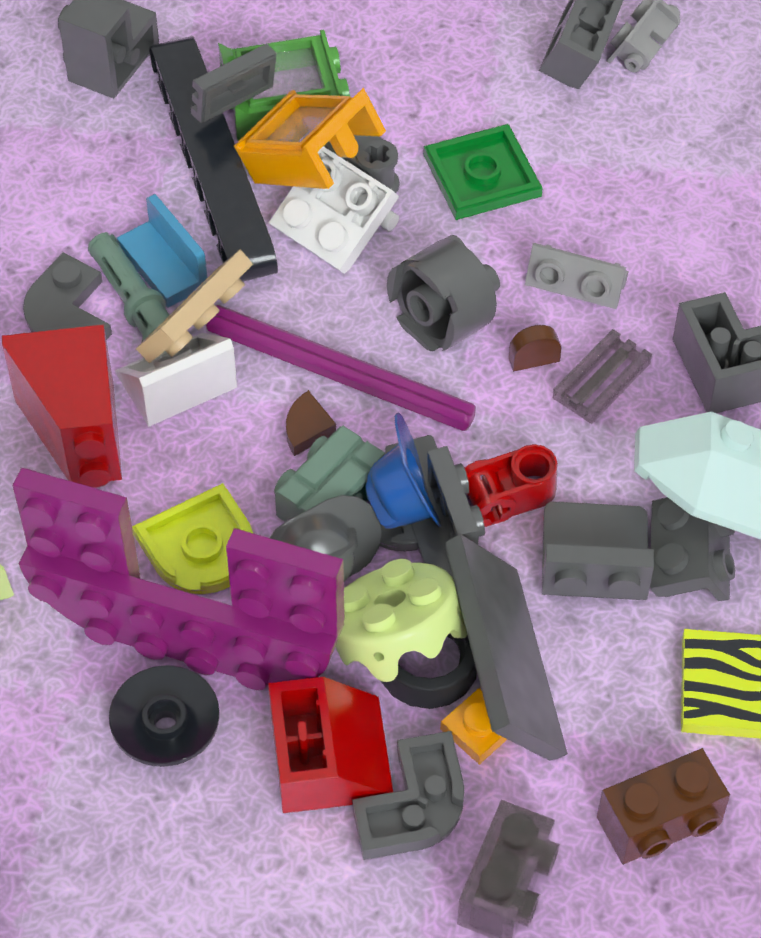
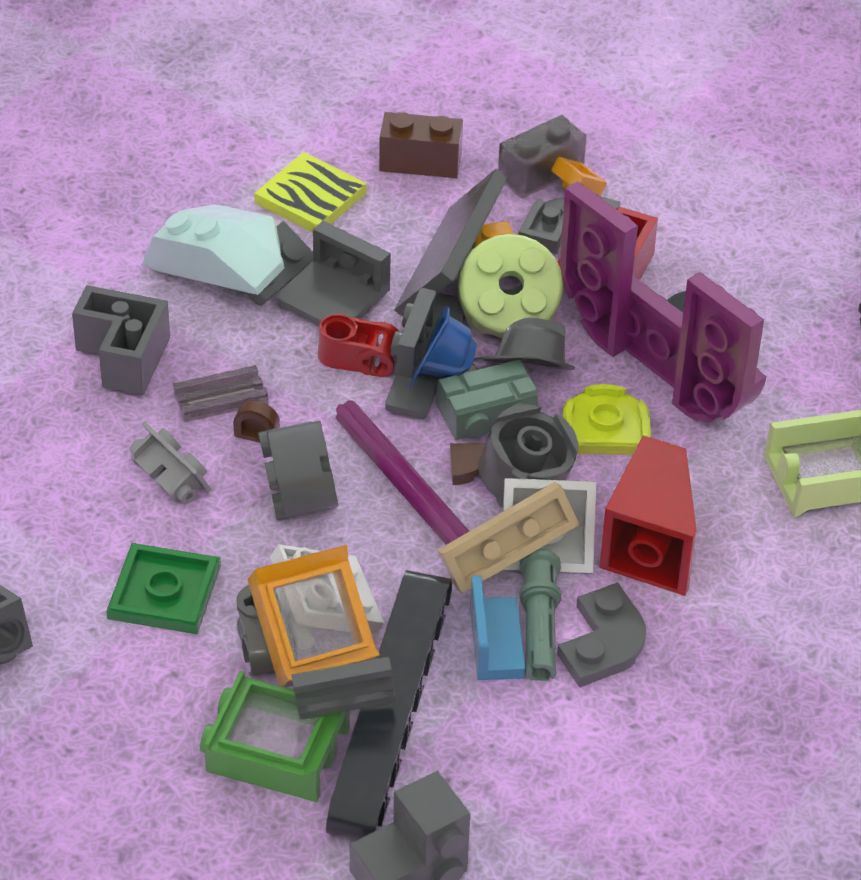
camera: 150 degrees left, 10 degrees down
(236, 410) = (527, 447): none -> dark grey brick
(440, 873) = (573, 171): none -> light orange plate

